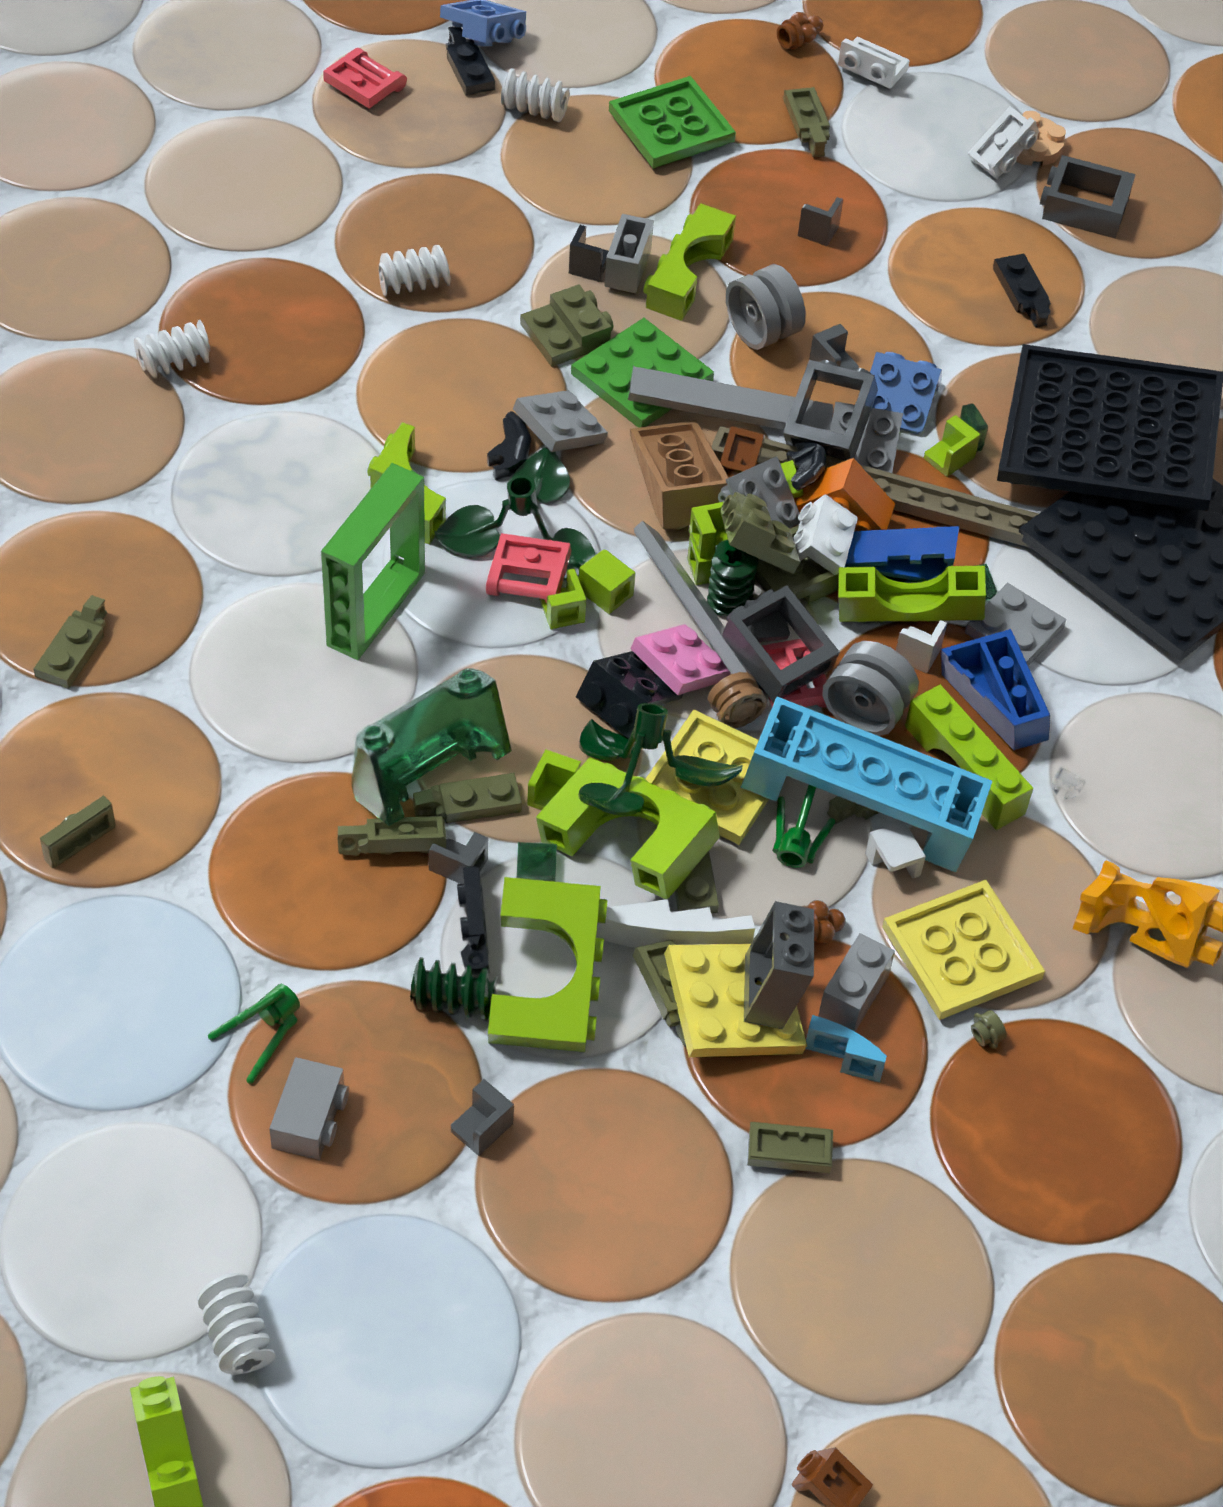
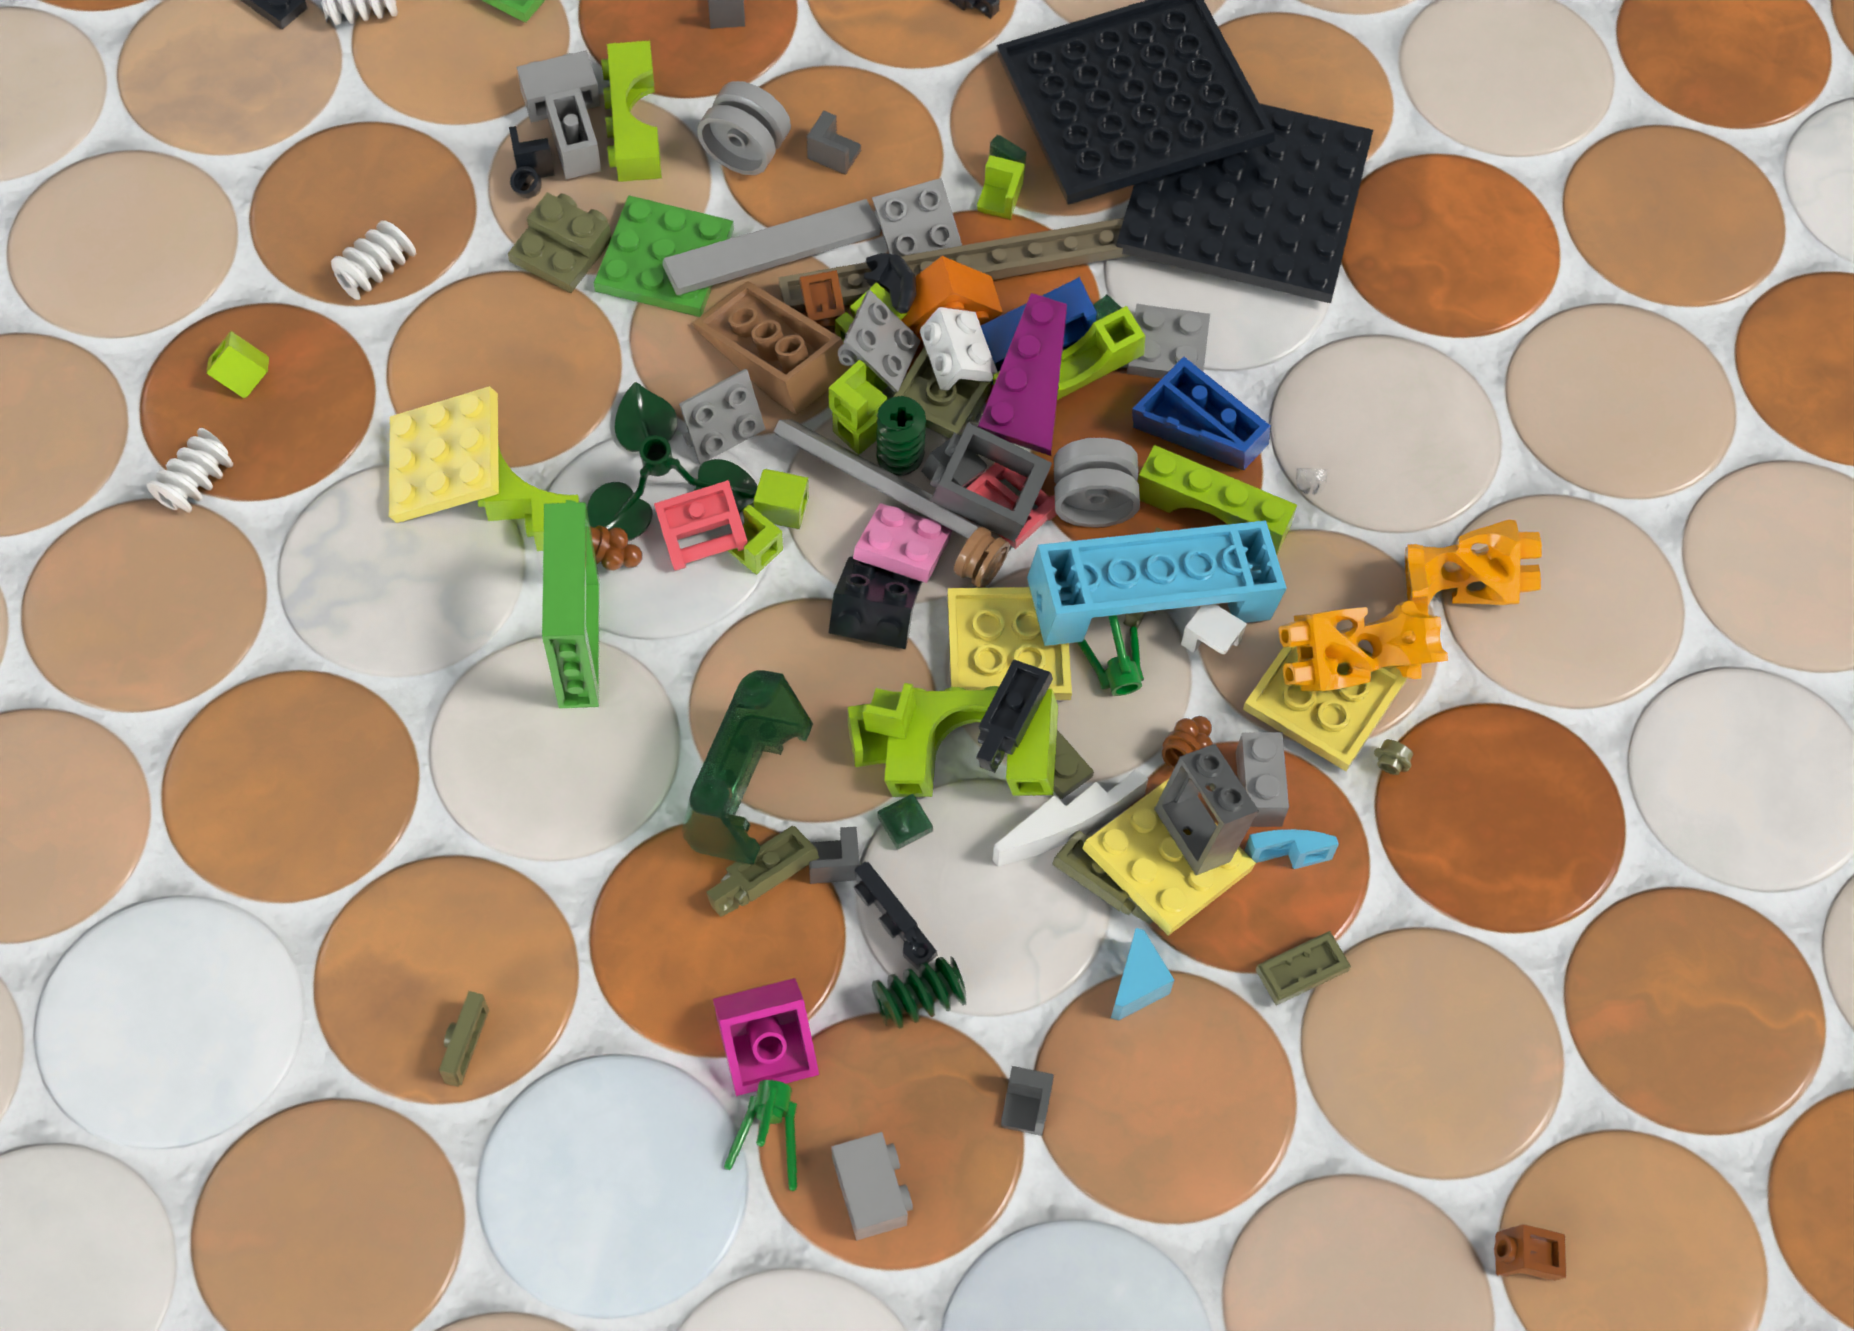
camera: 30 degrees left, 10 degrees up
(73, 644) = (315, 846): olive hinge -> none
(261, 295) = (237, 365): none -> lime panel
(307, 954) = (766, 1035): none -> dark pink slope
(363, 78) = (167, 69): coral plate -> none
(365, 424) = (443, 455): none -> light yellow plate
(446, 550) = (613, 549): none -> dark orange piece
(470, 799) = (803, 791): olive hinge -> none
(513, 449) = (597, 401): black piece -> none
(560, 420) = (625, 350): light grey plate -> none
(564, 1017) = (995, 863): lime arch -> none
(570, 272) = (521, 180): none -> black hinge
(574, 765) = (890, 712): none -> lime panel
(599, 497) = (722, 416): none -> light grey hinge
(641, 1079) = (1143, 978): none -> medium azure slope
(647, 733) = (895, 666): dark green plant -> none
(660, 209) = (556, 76): none -> light grey brick
(665, 810) = (1011, 712): none -> black hinge
(752, 531) = (908, 382): olive plate -> none
(834, 443) = (898, 244): dark grey window -> none
(856, 589) = (1028, 382): none -> magenta wing
(905, 388) = (918, 150): medium blue bracket -> none
(921, 647) = (1102, 411): white panel -> none
(1047, 932) = (1391, 637): none -> light orange hips

